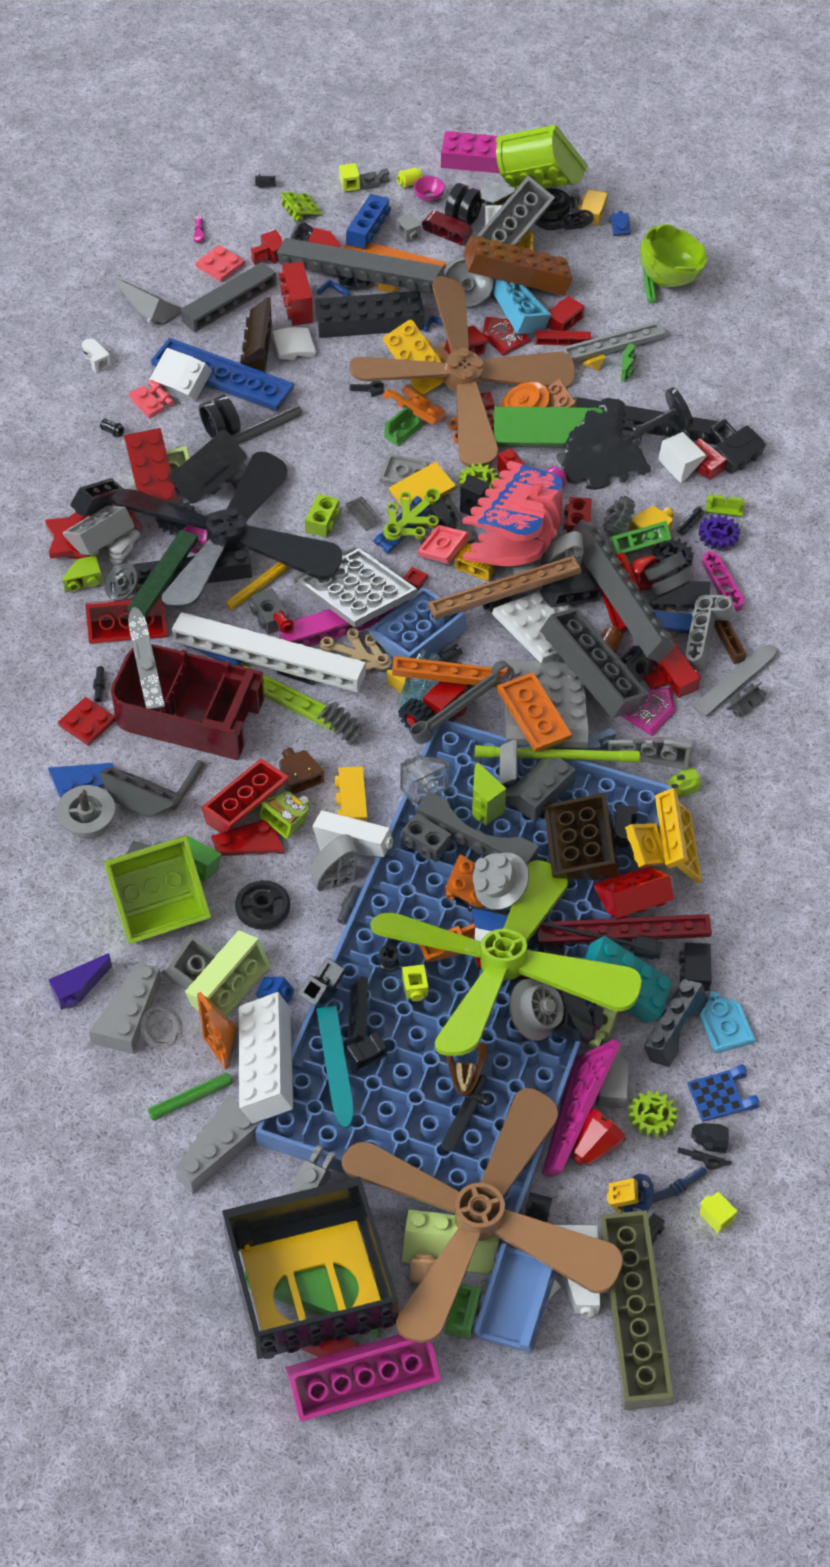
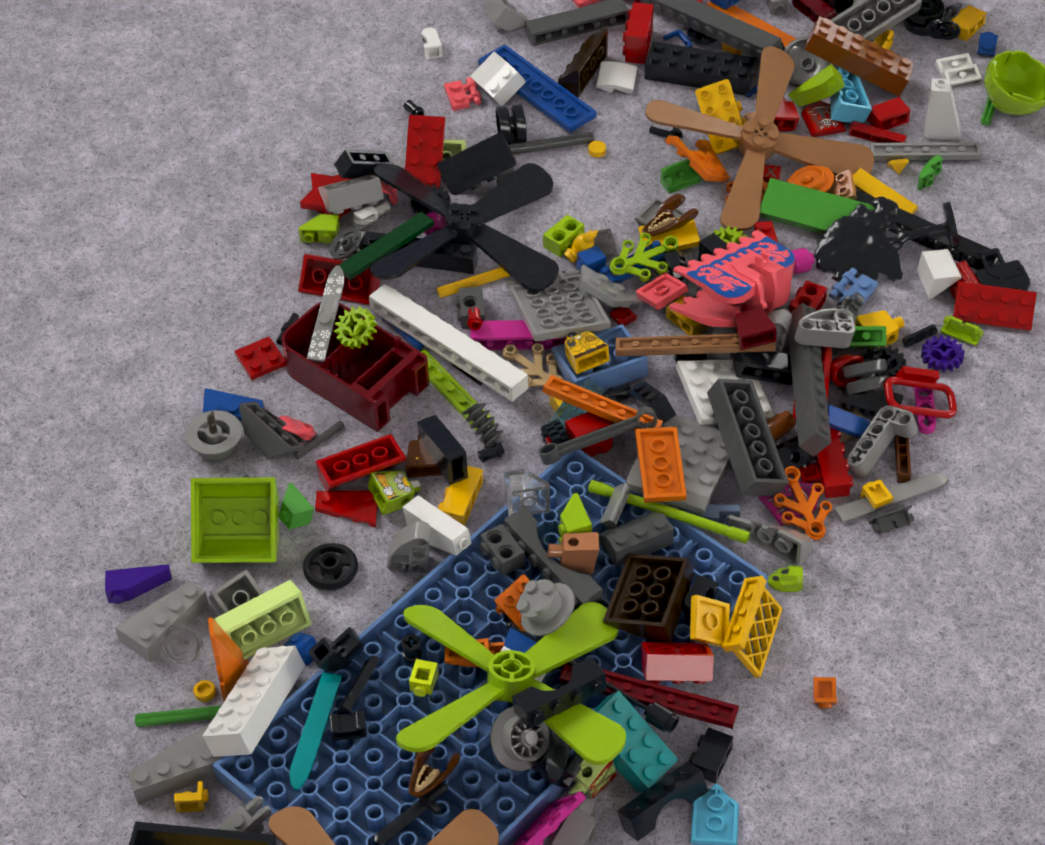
camera: 25 degrees right, 5 degrees down
(167, 780) = (298, 427): none -> coral plate
(175, 667) = (357, 328): none -> lime gear
(201, 1063) = (204, 691): none -> yellow tile
(245, 1173) = (192, 801): none -> yellow bracket
(309, 420) = (597, 149): none -> yellow tile
(321, 757) = (444, 449): none -> black slope
(345, 521) = (580, 243): none -> yellow animal
(358, 747) = (491, 452): none -> black pin
(361, 533) = (592, 258): none -> blue brick
(383, 556) = (605, 290): none -> light grey wing
(406, 623) = (585, 351): none -> yellow torso
(413, 475) = (665, 220): none -> reddish brown animal
(487, 653) = (647, 396): none -> black brick
(494, 305) = (818, 87): none -> lime slope
(500, 817) = (577, 551): none -> nougat torso
(547, 974) = (537, 705): none -> black arch
(556, 556) = (754, 328): none -> dark red torso
(587, 390) = (872, 186): none -> yellow tile
(604, 255) = (958, 69): none -> white slope
(616, 302) = (941, 114): none -> white slope
(617, 488) = (863, 285): none -> medium blue plate
(620, 538) = (826, 328): none -> light grey beam
(667, 712) = (803, 506): none -> orange plant
(720, 561) = (920, 379): none -> red bar
(724, 680) = (876, 494): none -> yellow bracket
(745, 474) = (995, 306): none -> red plate
(765, 876) = (824, 692): none -> orange bracket

